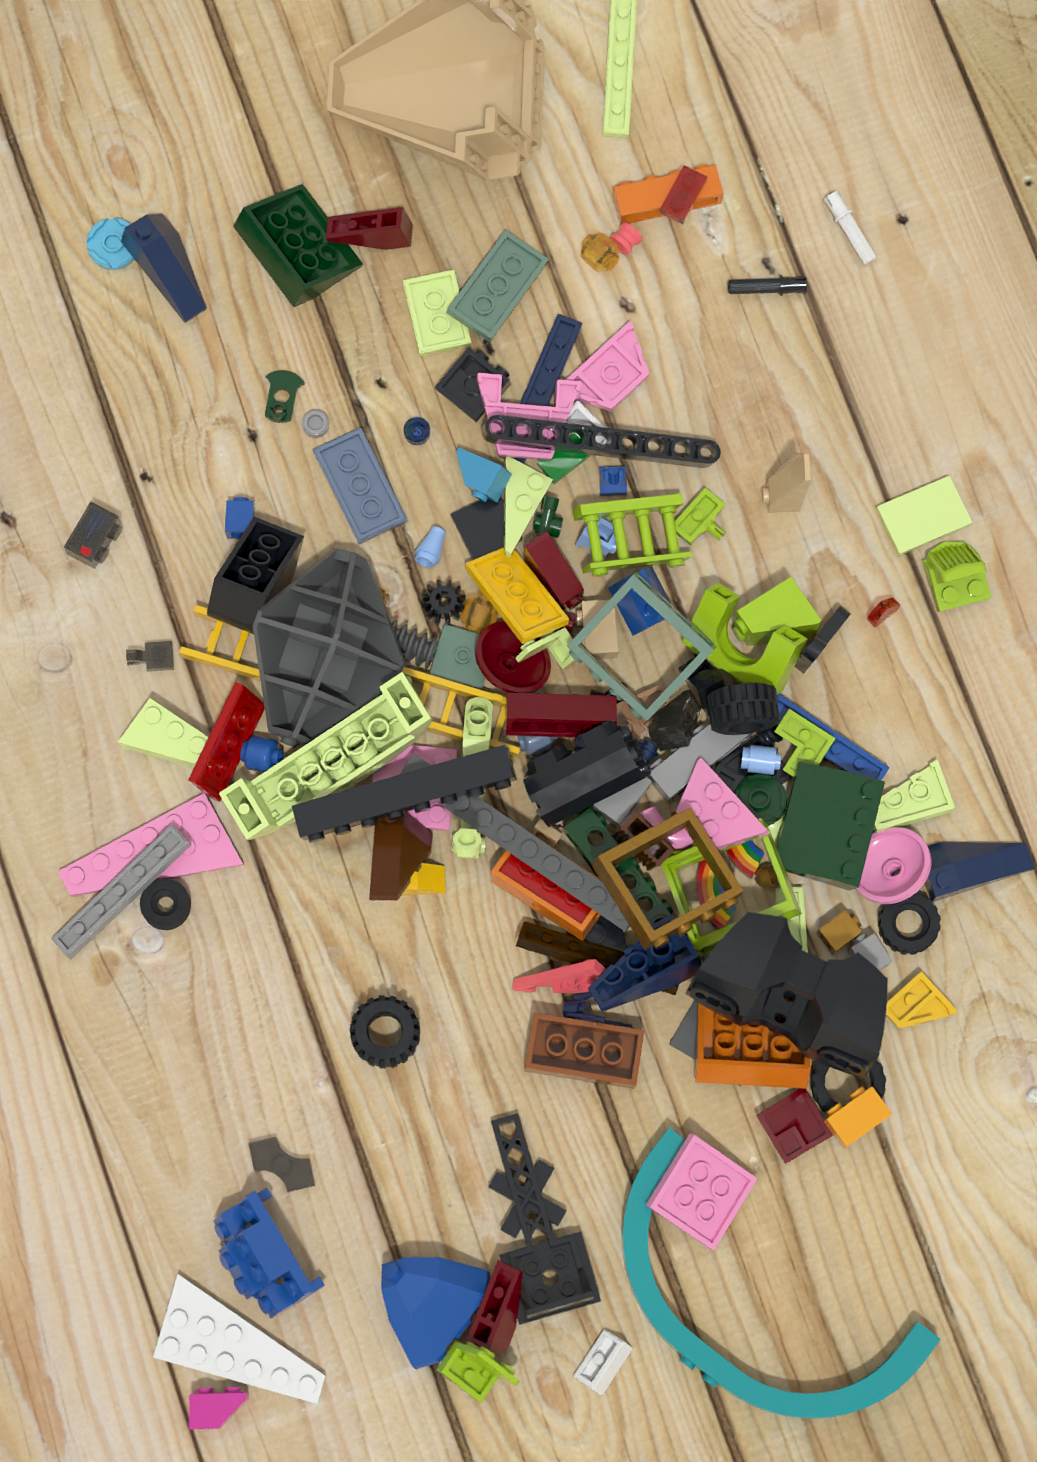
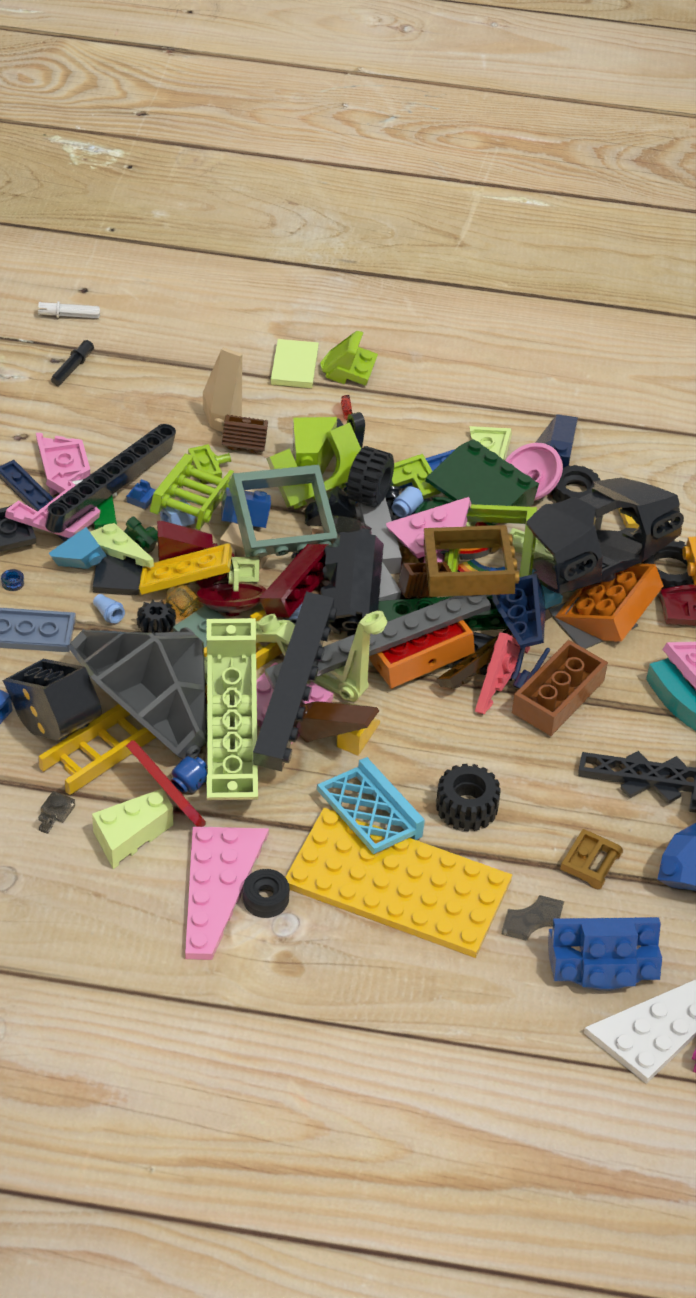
camera: 60 degrees left, 30 degrees down
(121, 891) = (236, 913): light grey tile -> none
(253, 1017) = (402, 886): none -> yellow plate
(339, 956) = (387, 799): none -> medium azure fence
(383, 1177) = (583, 855): none -> pearl gold plate
(762, 532) = (244, 433): none -> reddish brown brick

